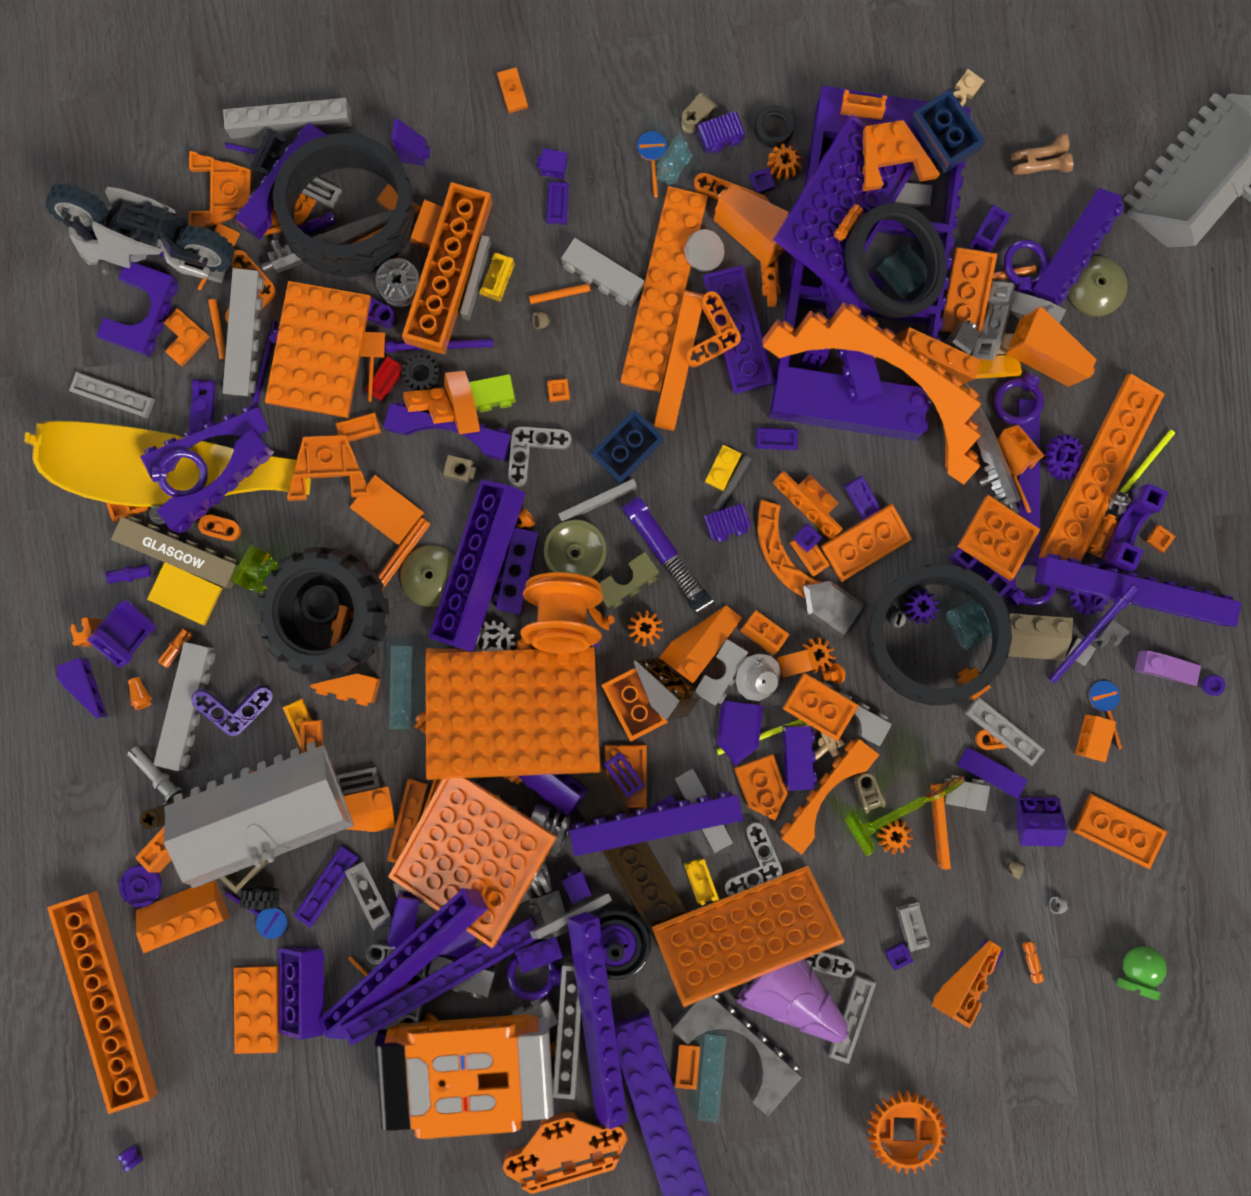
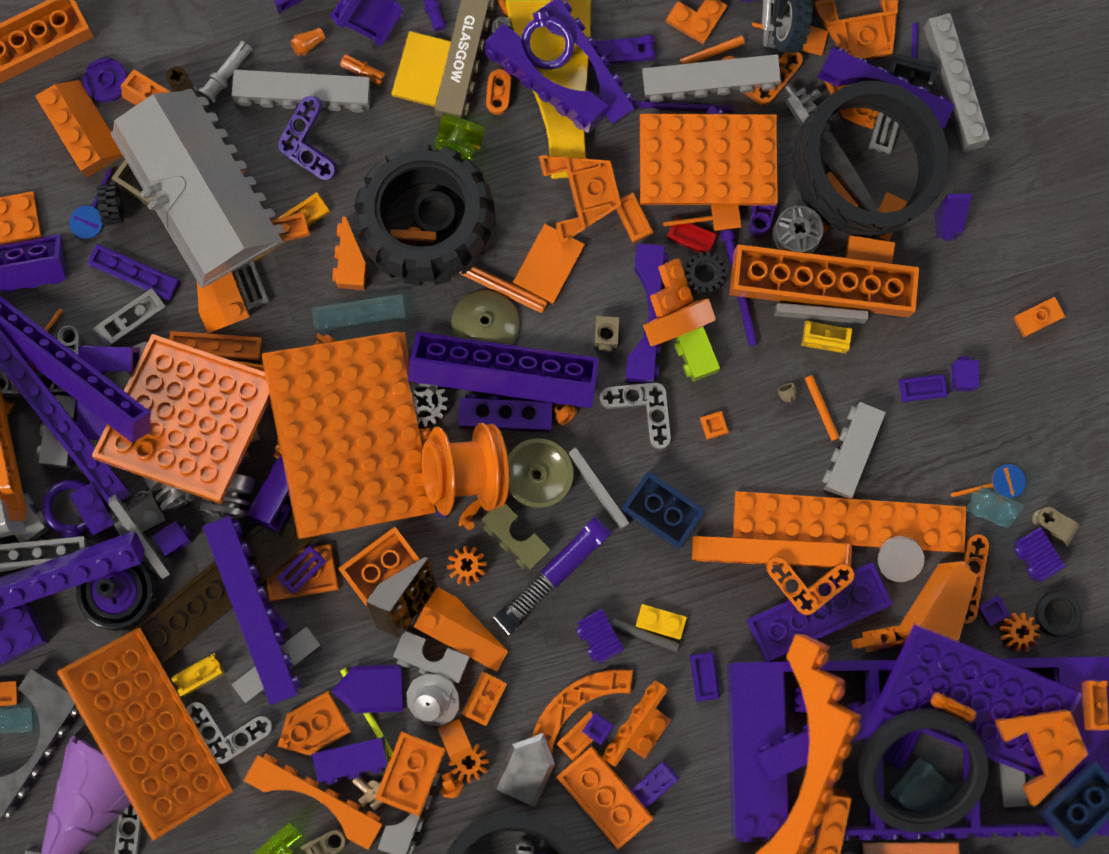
camera: 75 degrees right, 5 degrees down
(317, 223) = (846, 133): dark purple axle -> none

